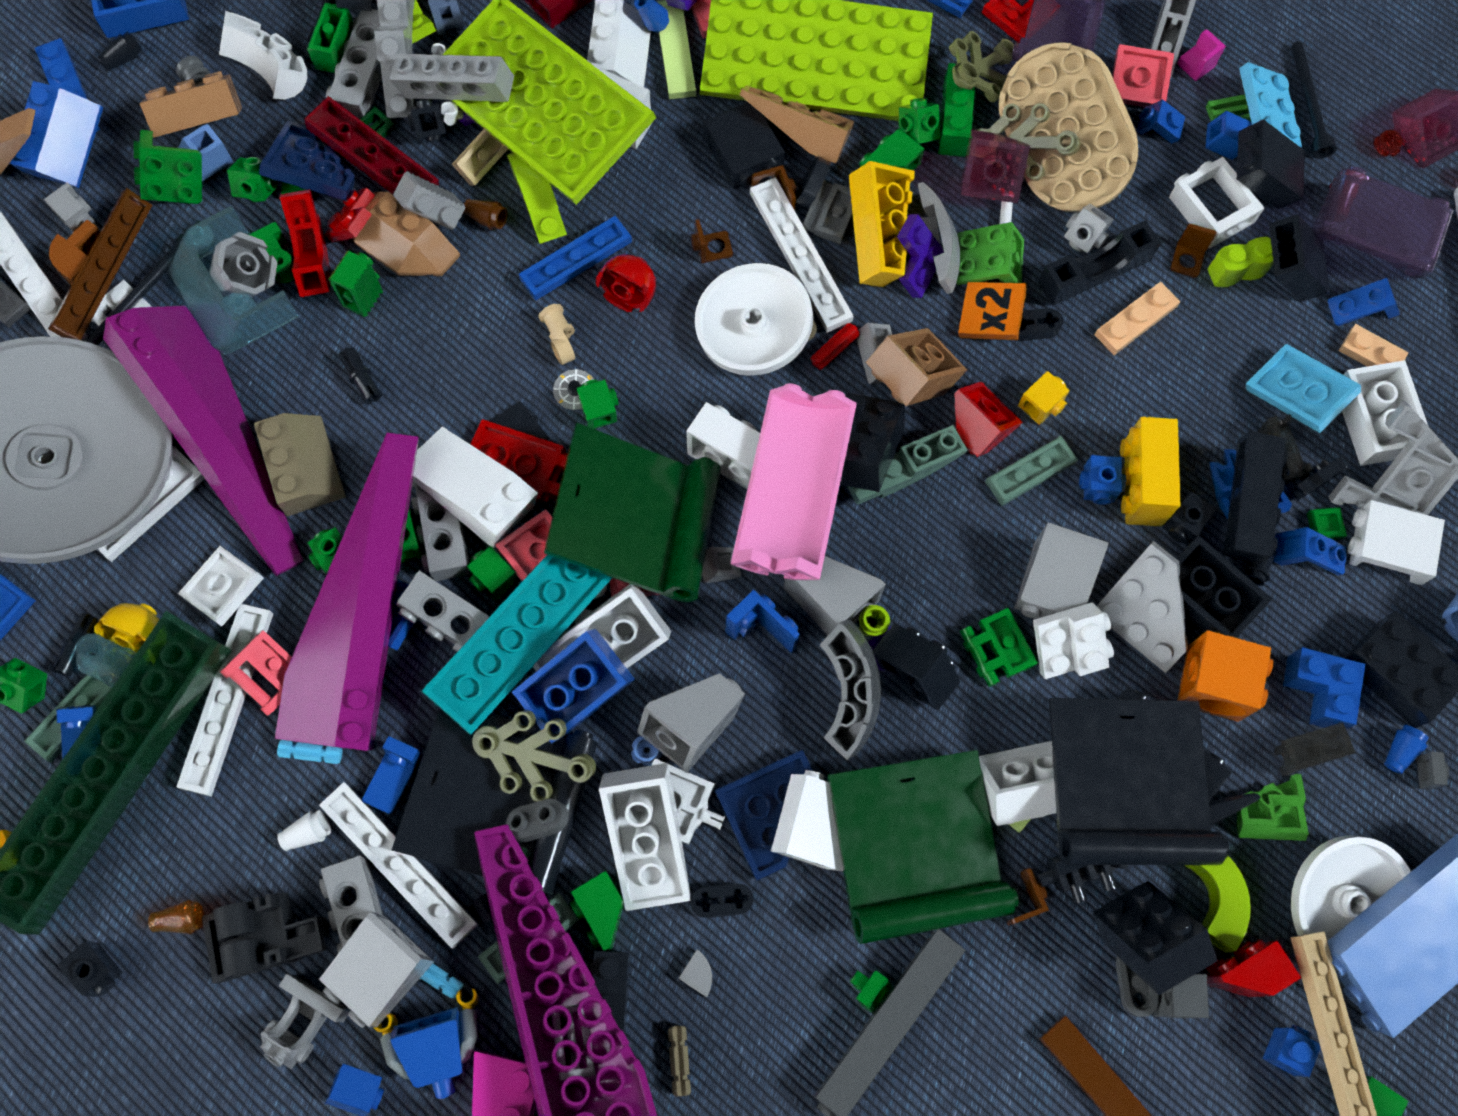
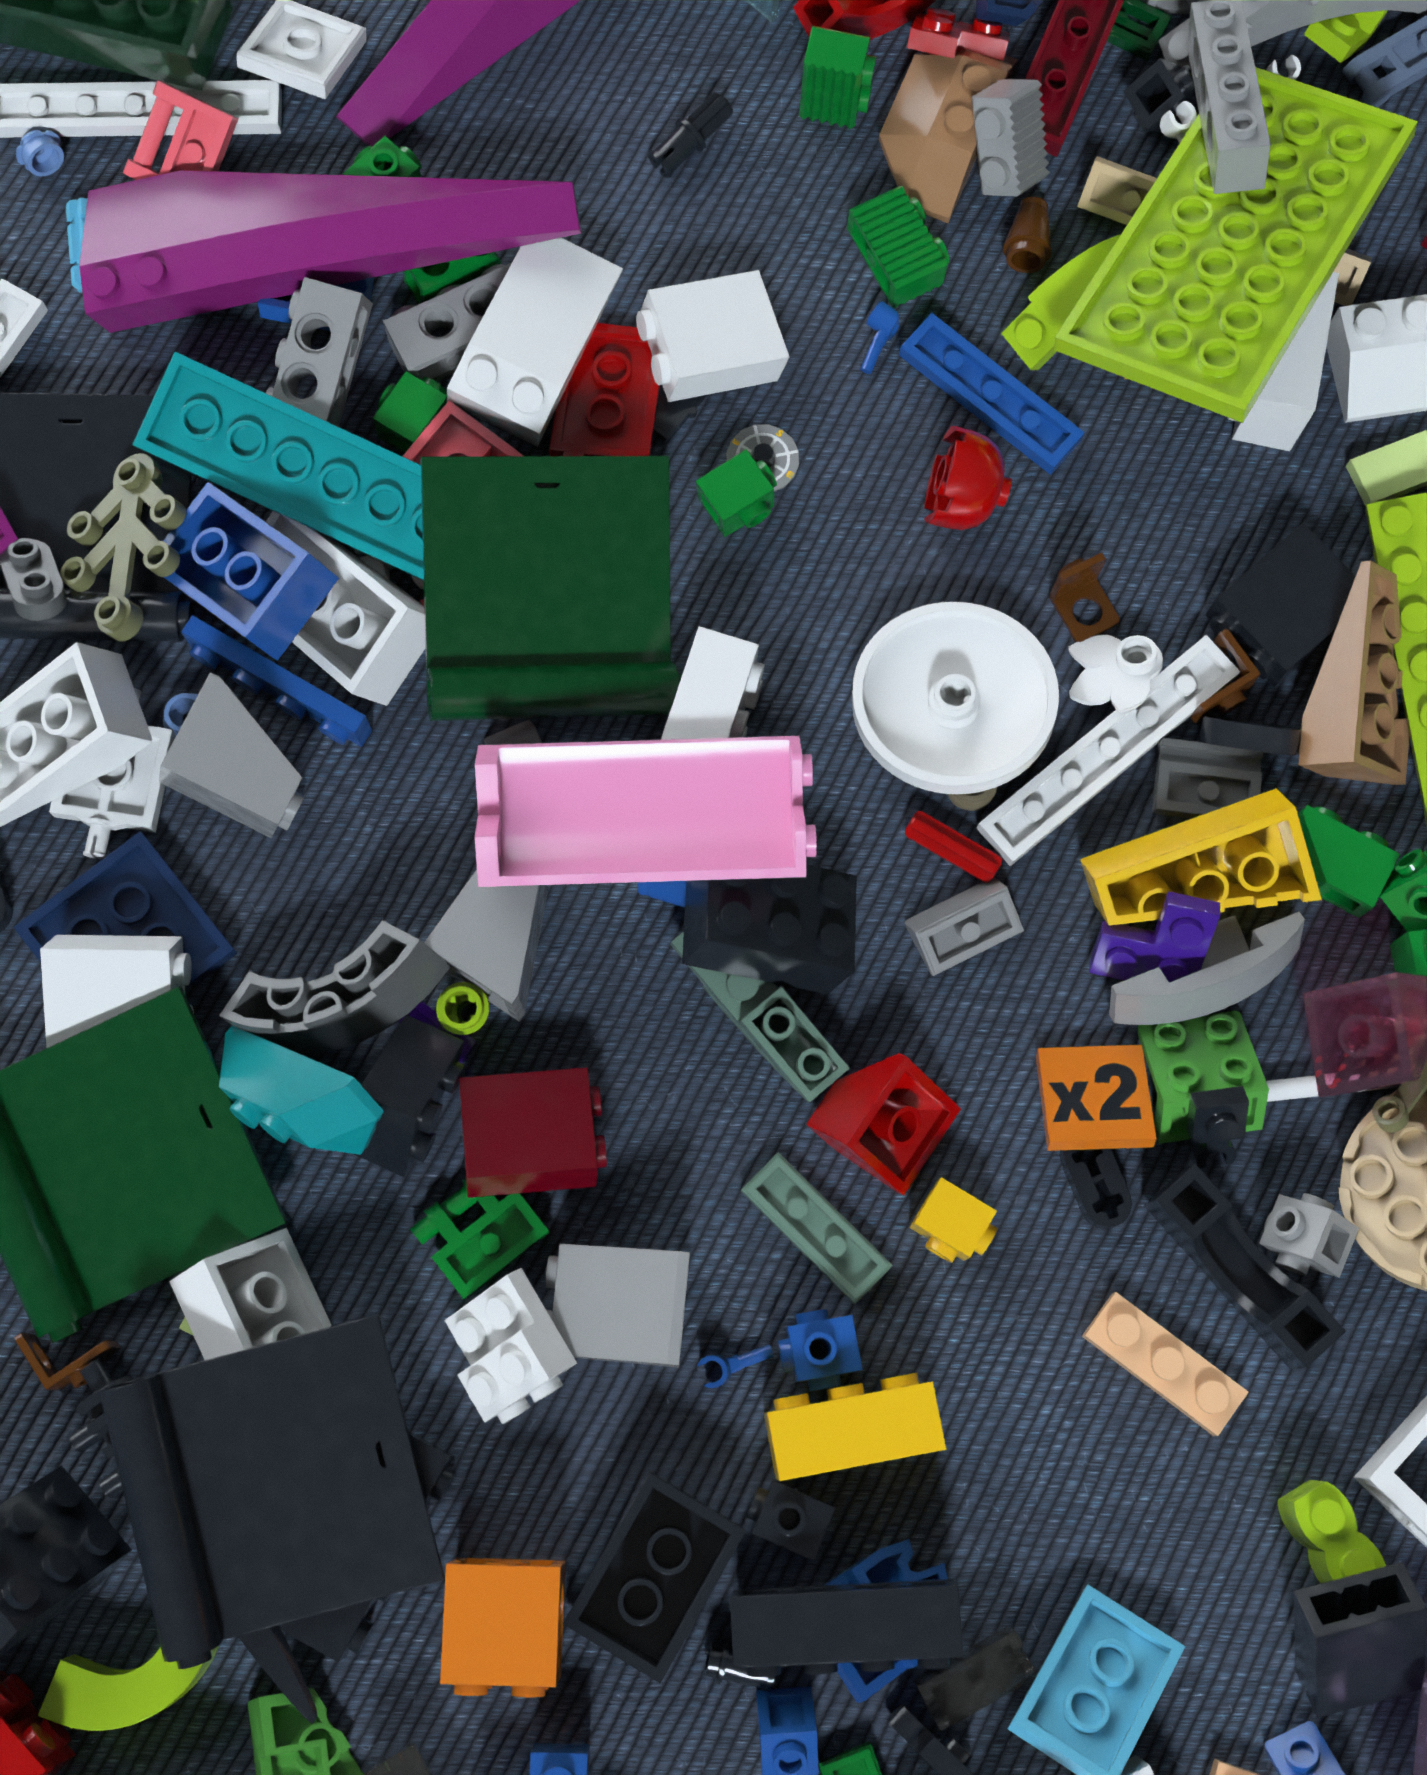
camera: 75 degrees right, 5 degrees up
(234, 765) = (40, 152): none -> medium blue plate
(299, 461) = (523, 91): dark tan slope -> none
(391, 775) = (68, 364): blue bracket -> none
(470, 281) = (898, 245): none -> green brick
(496, 391) = (712, 336): none -> white brick
(514, 301) = (886, 324): none -> blue hand
(559, 332) = (848, 404): tan connector -> none
(632, 699) = (292, 693): none -> blue plate
(759, 242) = (1113, 670): none -> white plate
(761, 608) = (438, 832): blue bracket -> none
(909, 721) = (295, 1095): none -> teal wedge
(915, 366) = (930, 976): medium nougat brick -> none
(952, 602) = (530, 1132): none -> dark red brick
(1022, 253) = (1215, 1120): none -> black plate
(1097, 529) = (736, 1363): none -> blue hand
(1149, 607) = (598, 1469): light grey plate -> none
(1194, 243) = (1346, 1435): reddish brown bracket -> none

